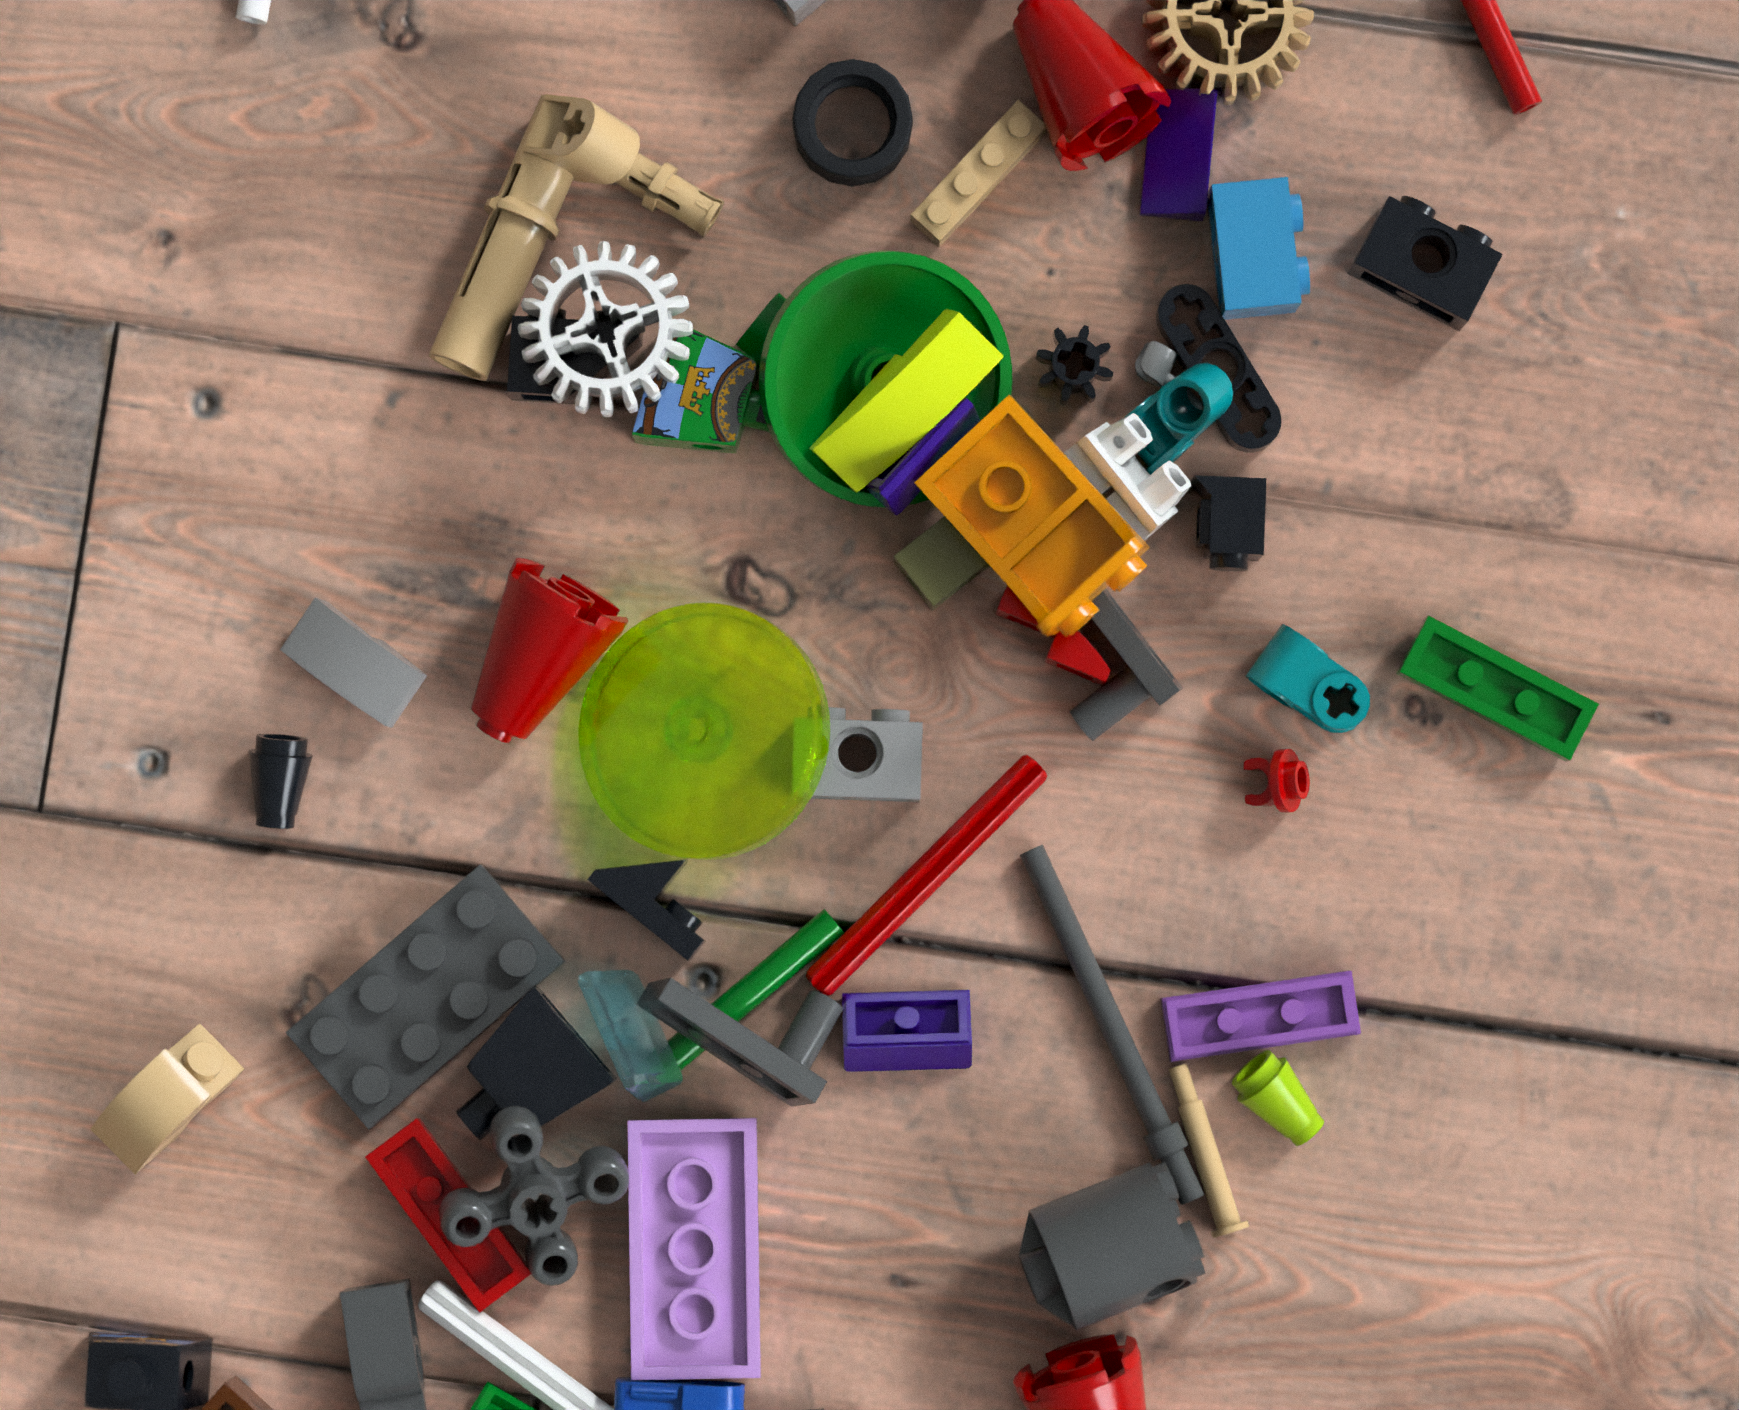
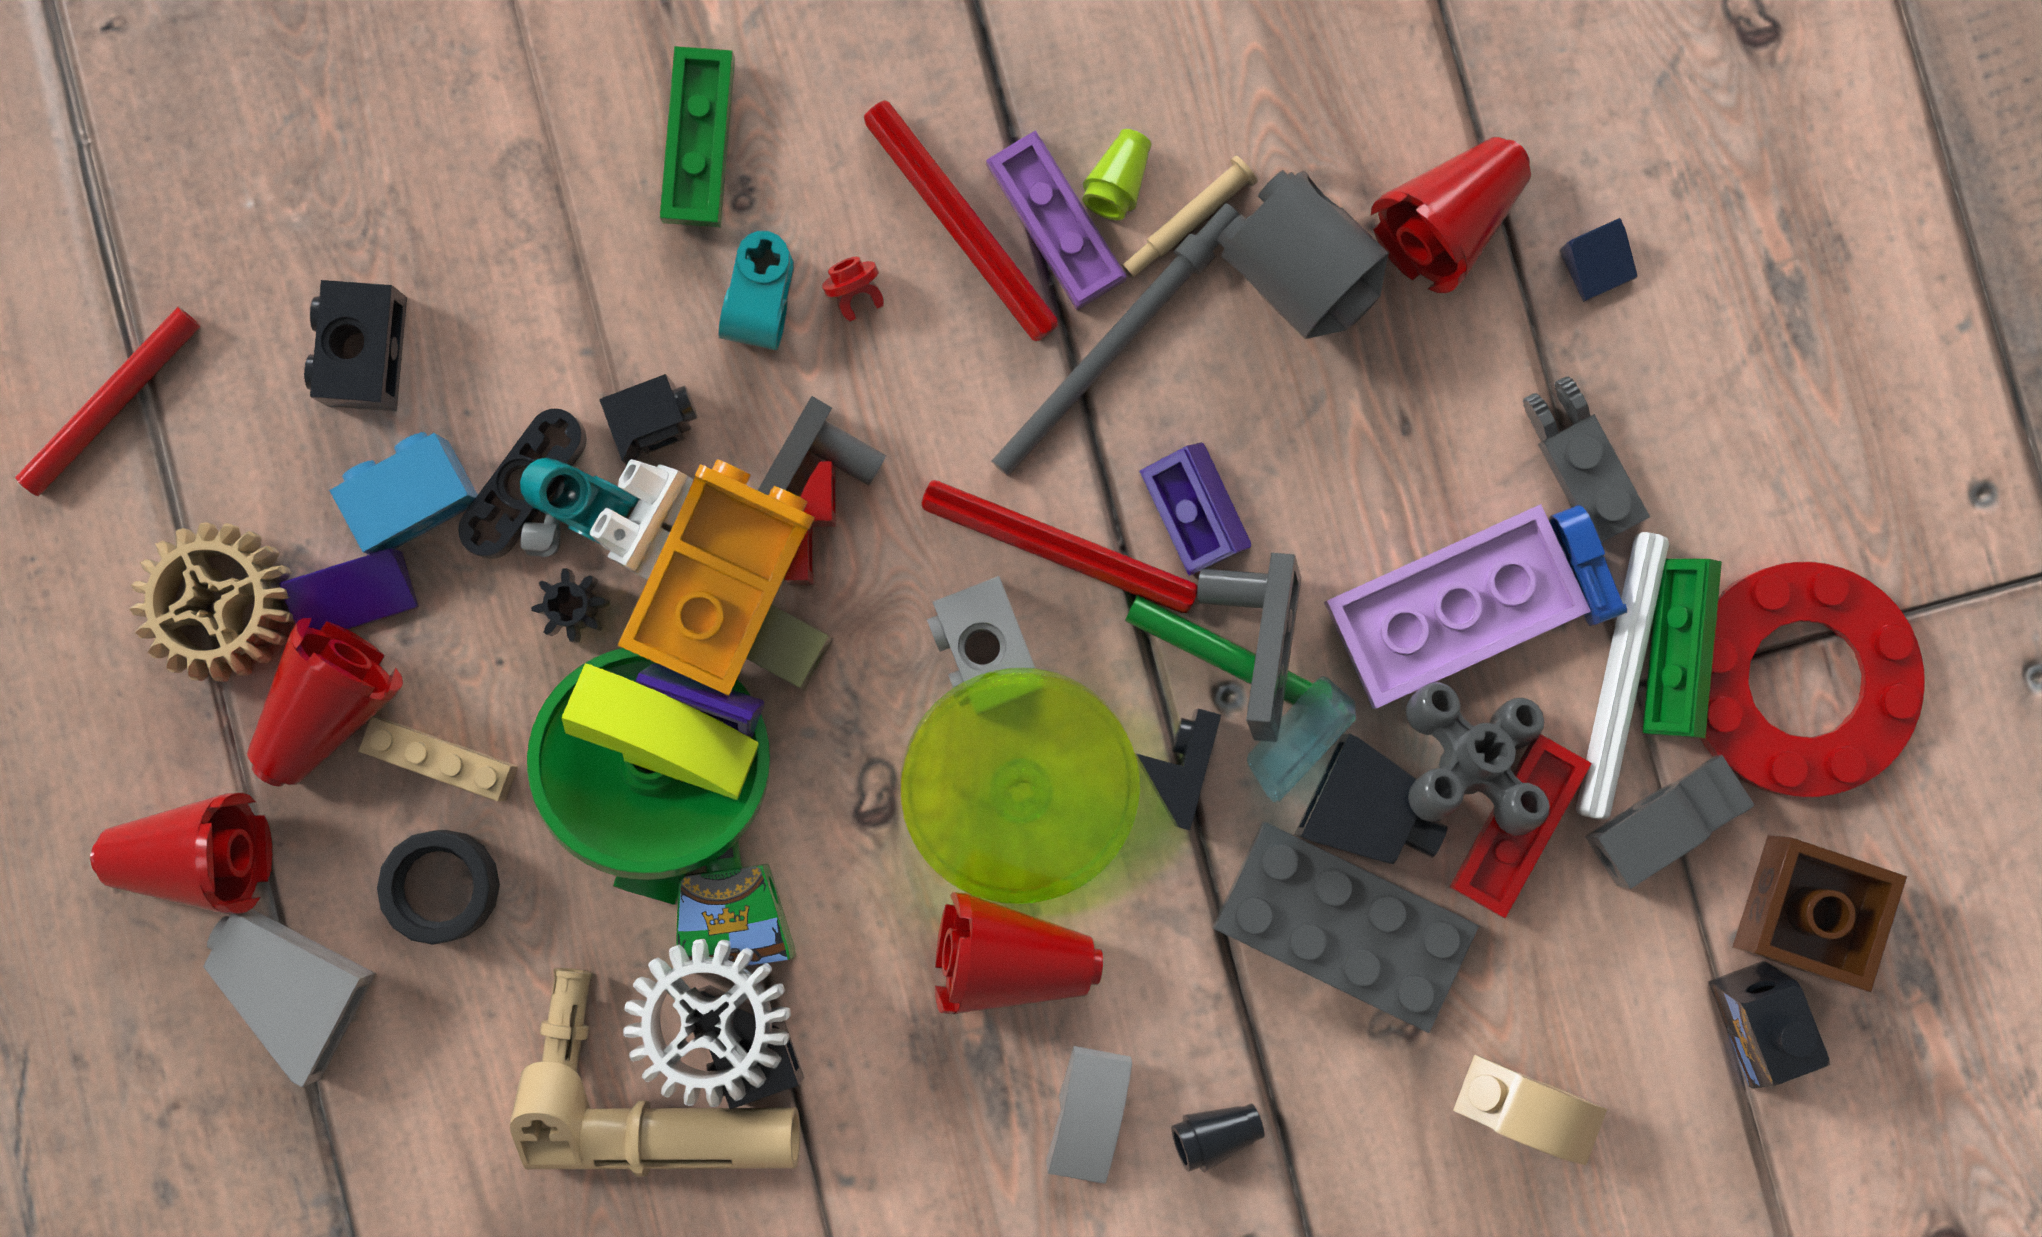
camera: 110 degrees left, 0 degrees up
(1300, 918) = (960, 220): none -> red axle

